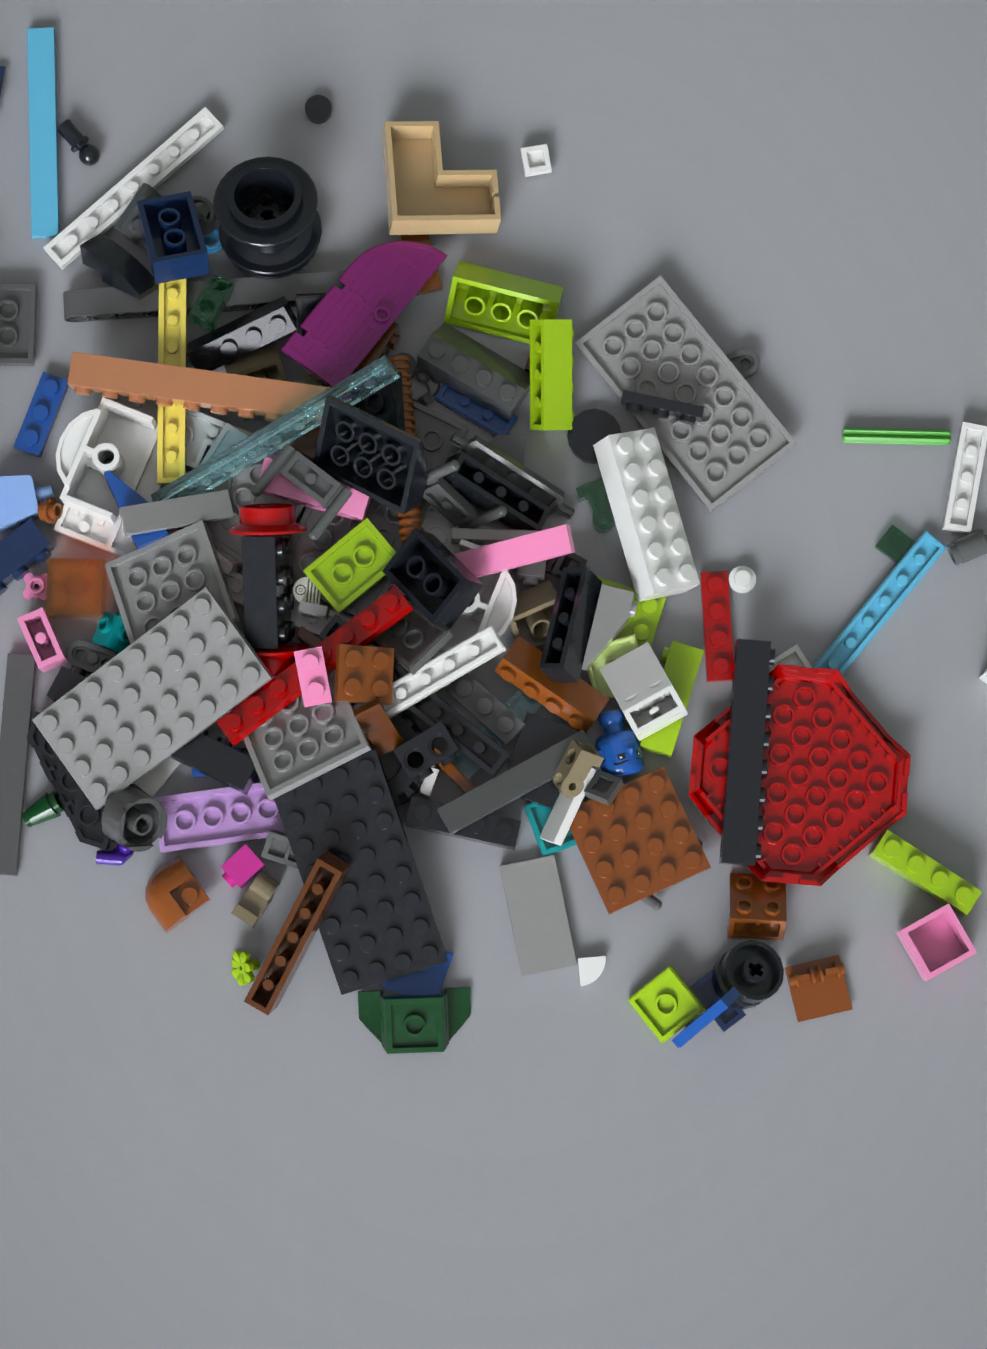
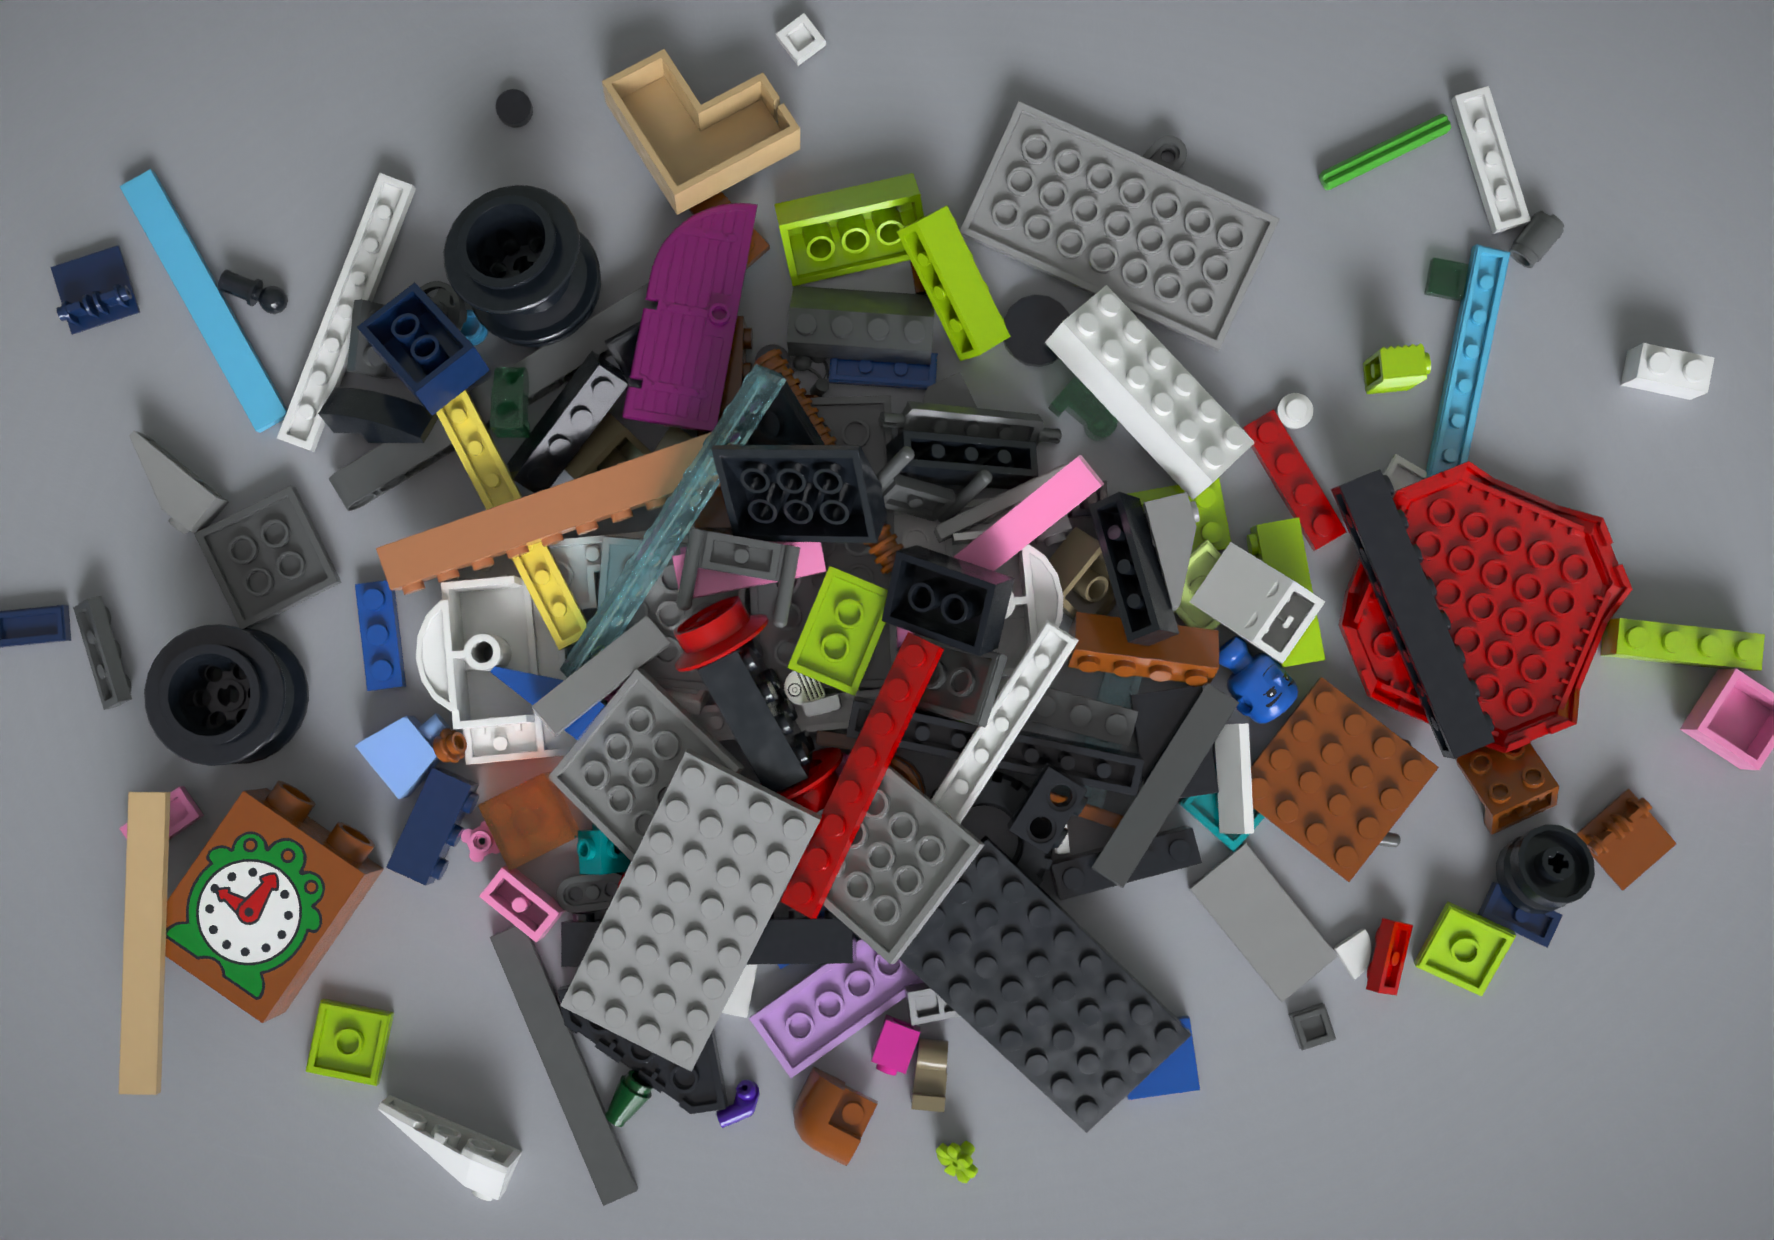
camera: 25 degrees left, 5 degrees up
(133, 819) = (741, 1060): dark grey brick -> none
(297, 932) = (1005, 1096): reddish brown brick -> none
(313, 676) = (869, 793): bright pink plate -> none
(364, 674) = (928, 758): dark orange plate -> none
(379, 726) = (977, 810): reddish brown tile -> none
(414, 1021) = (1187, 1123): dark green piece -> none
(534, 1004) = (1312, 1026): none -> dark grey tile
(575, 768) = (1228, 735): dark tan leg -> none
(603, 787) = (1269, 739): dark grey plate -> none
(612, 982) = (1389, 956): none -> red plate
(662, 407) = (1103, 256): black plate -> none
(706, 1017) = (1528, 945): blue tile -> none
(823, 584) = (1396, 368): none -> lime brick

